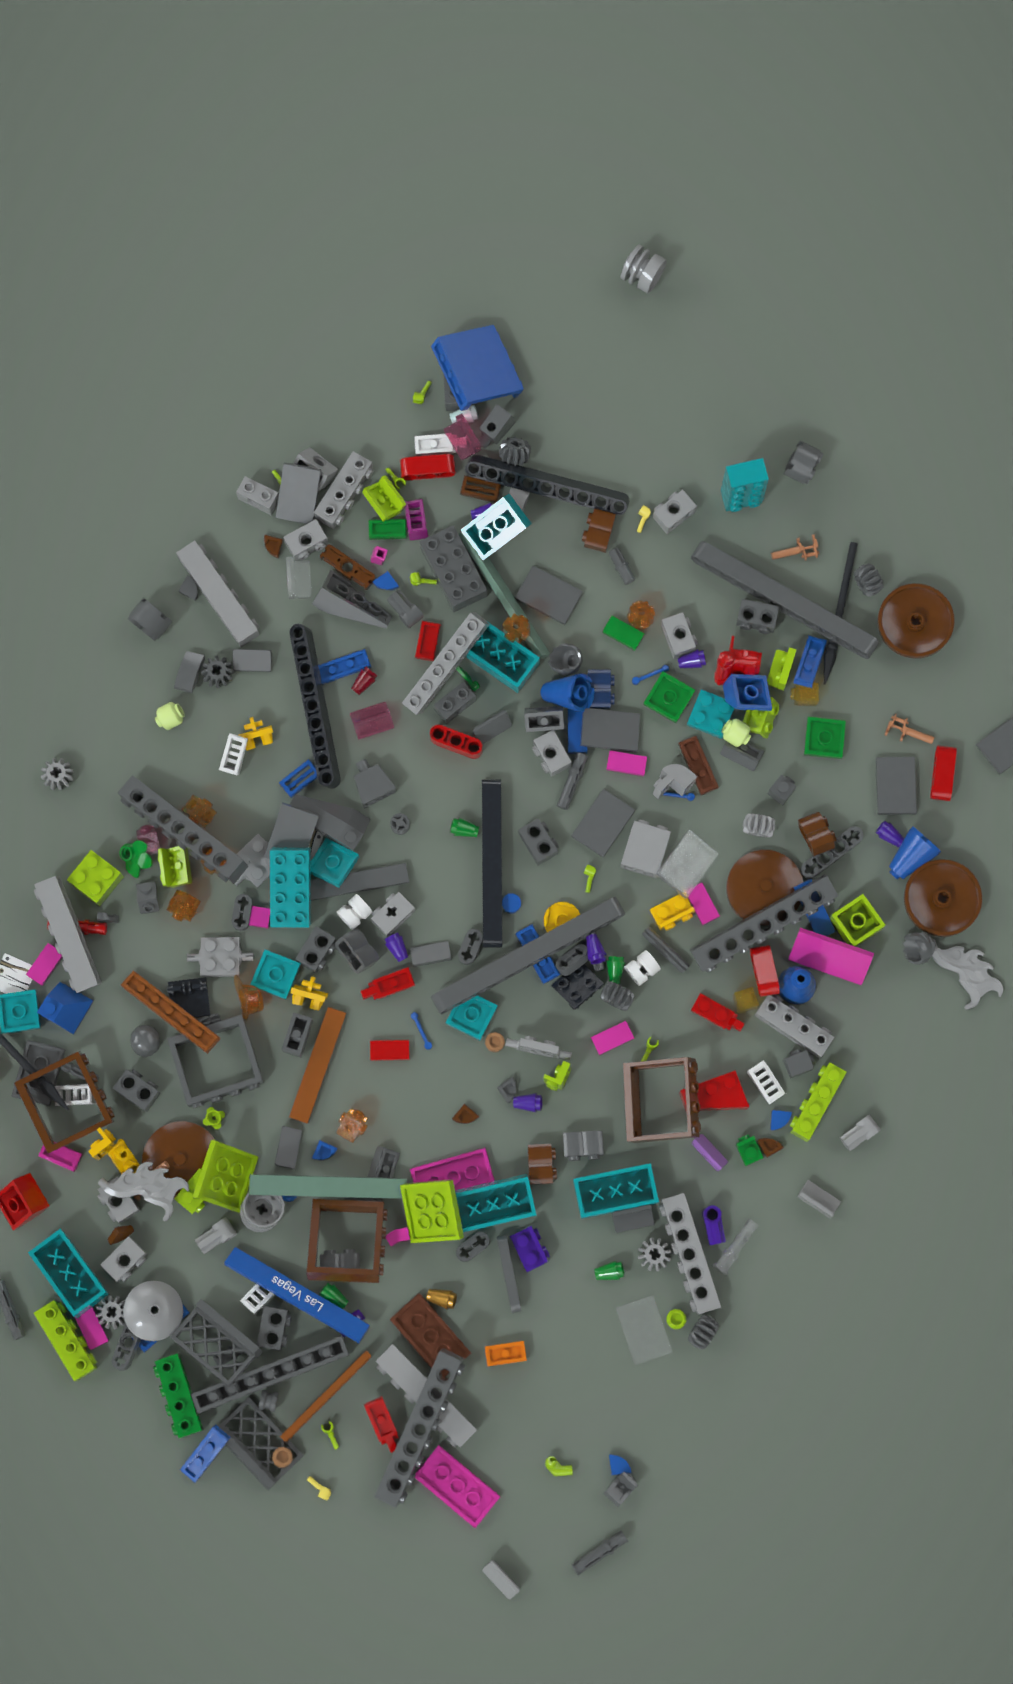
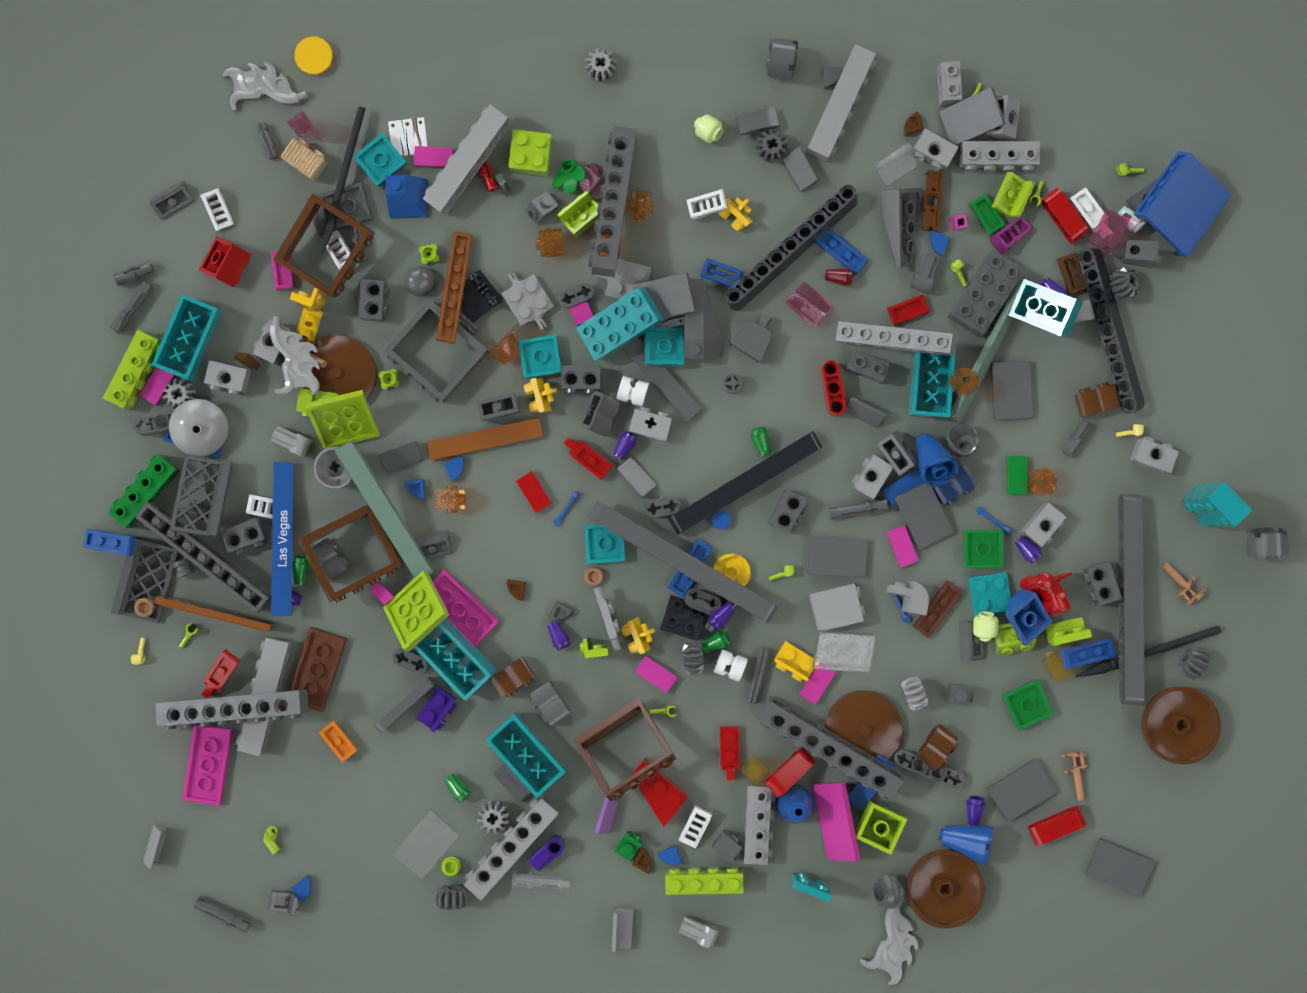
camera: 60 degrees right, 10 degrees up
(126, 1013) = (424, 250): none -> lime plate
(326, 1106) = (454, 467): none -> blue tile
(442, 1298) = (353, 662): pearl gold cone -> none
(473, 685) = (892, 374): green piece -> none
(562, 1031) = (640, 633): none -> yellow hips
(869, 1013) = (817, 889): none -> teal plate

